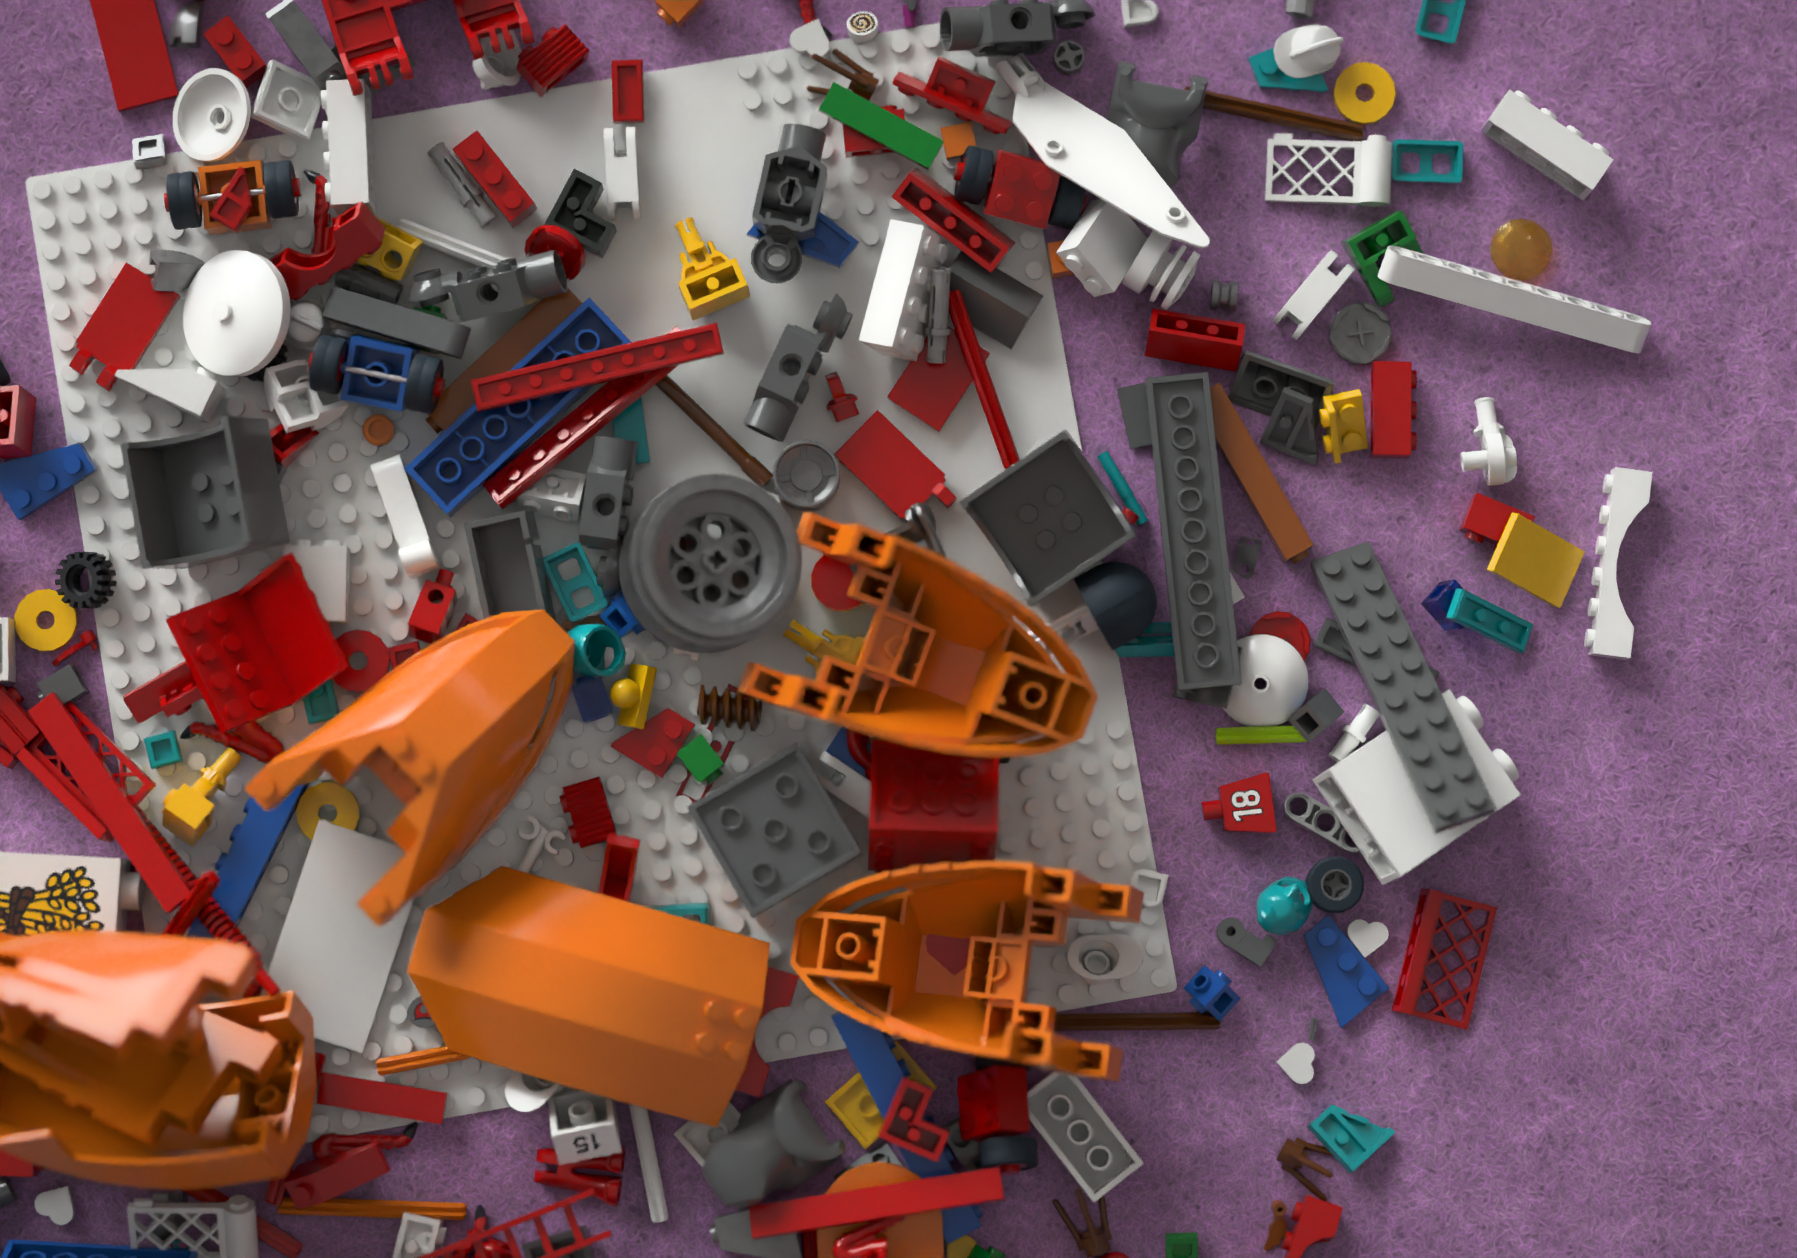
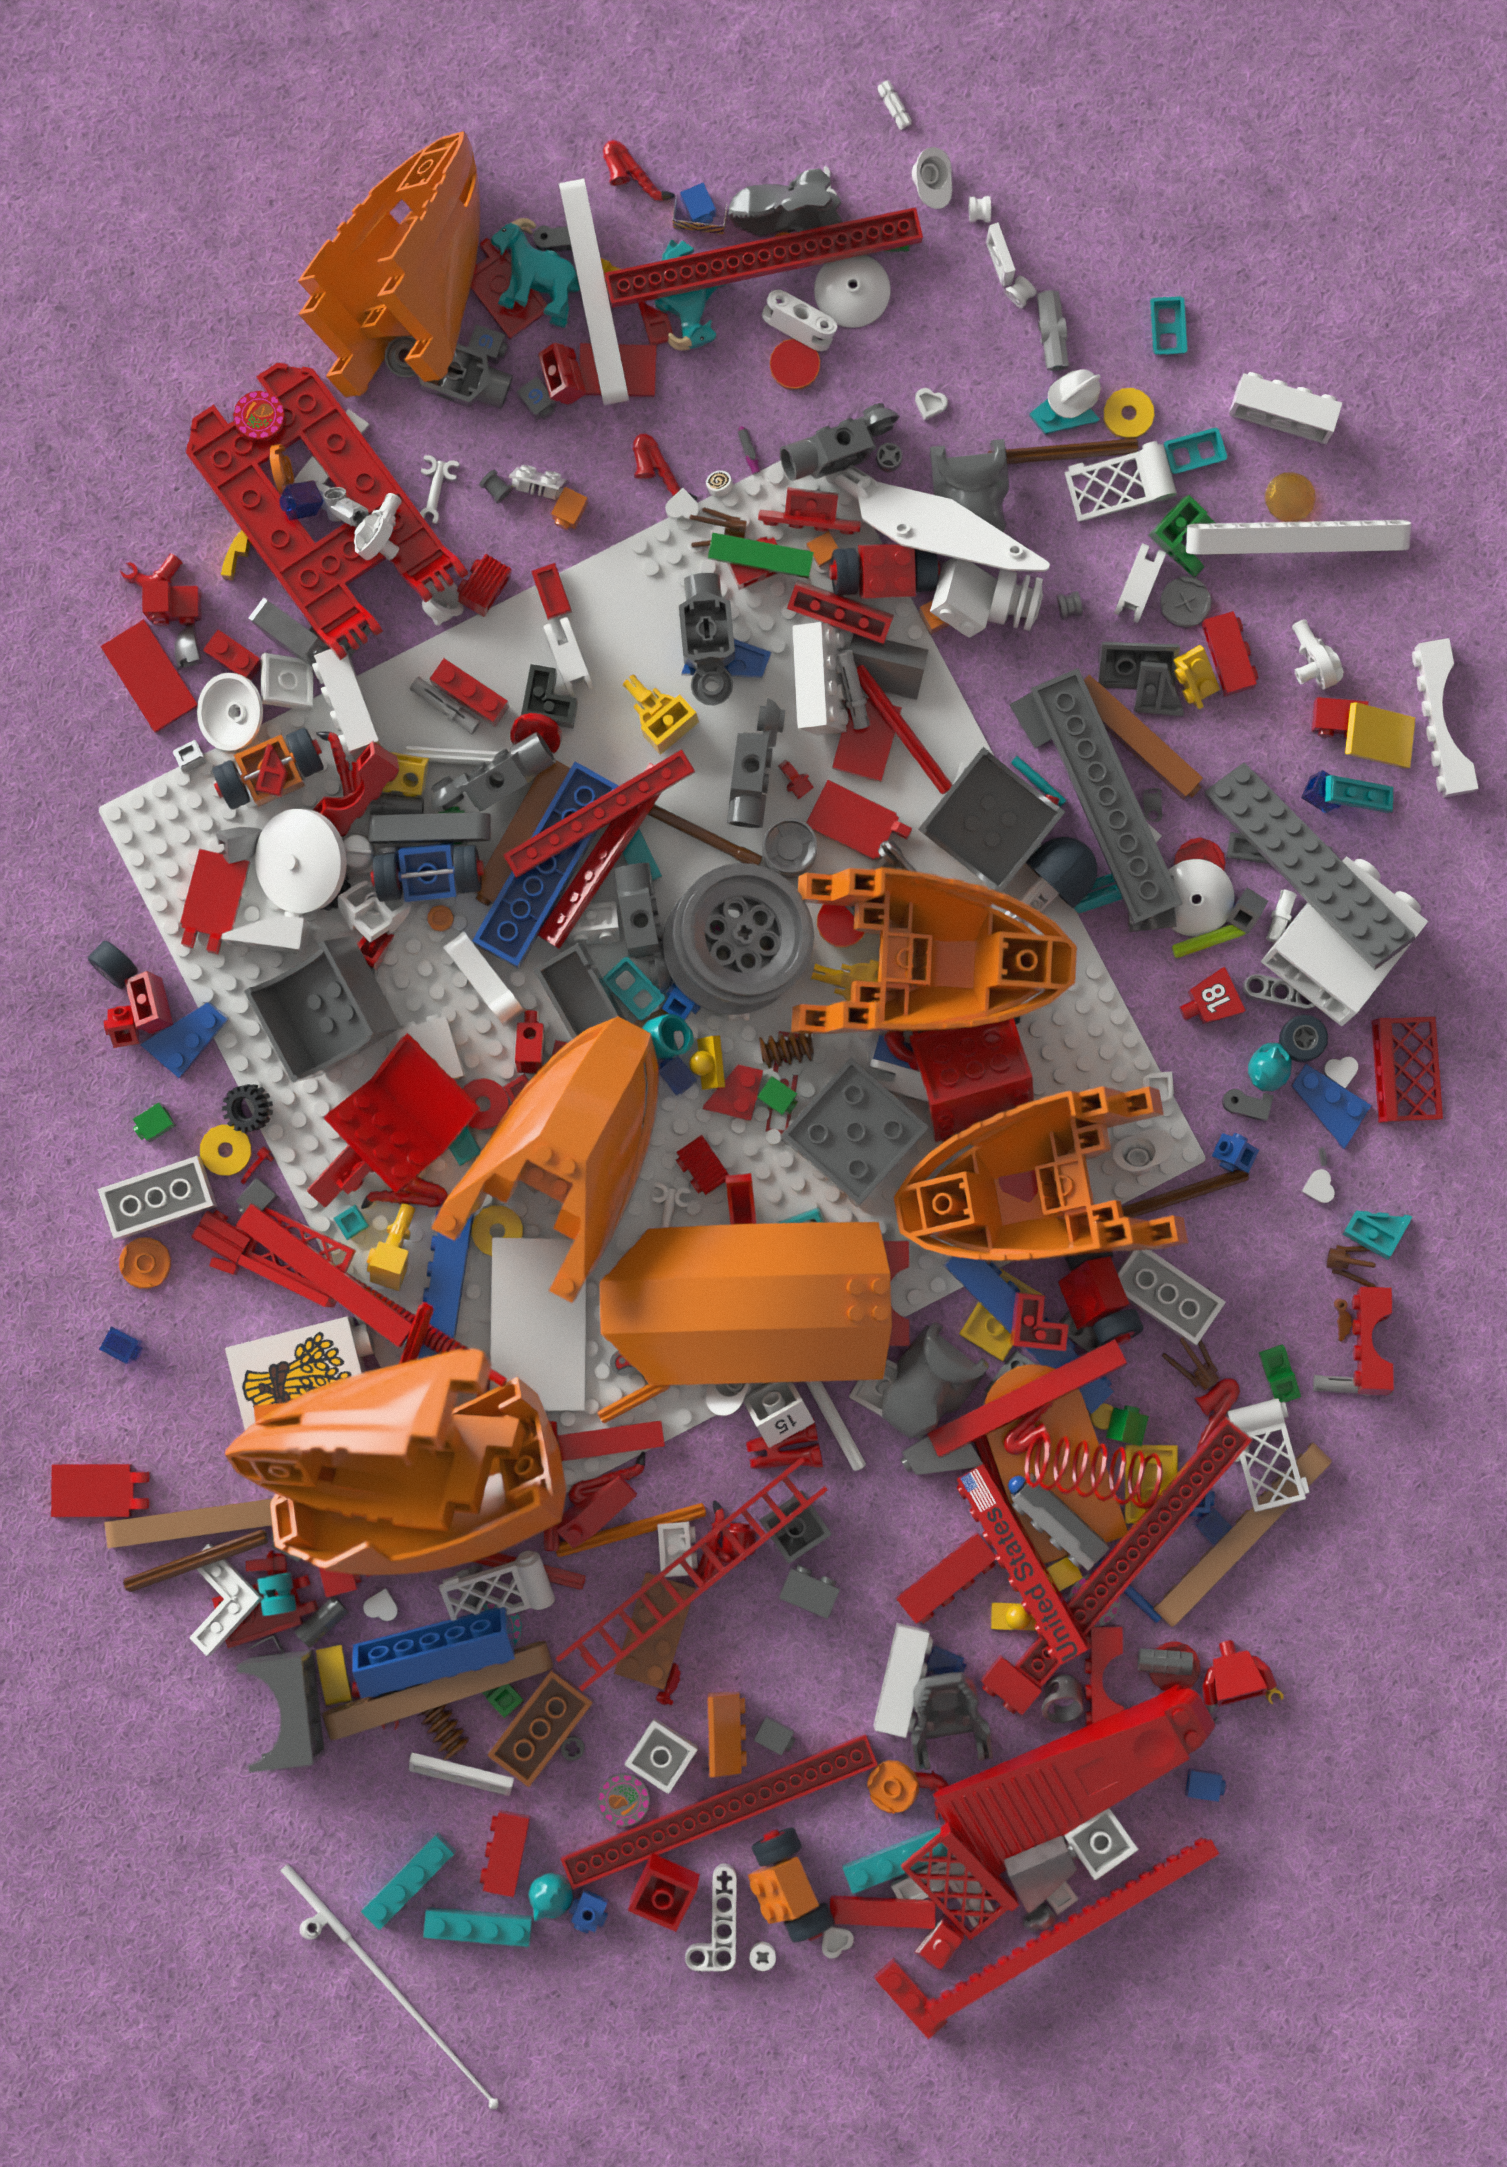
camera: 15 degrees left, 0 degrees up
(1194, 340) = (1058, 647): red brick -> none

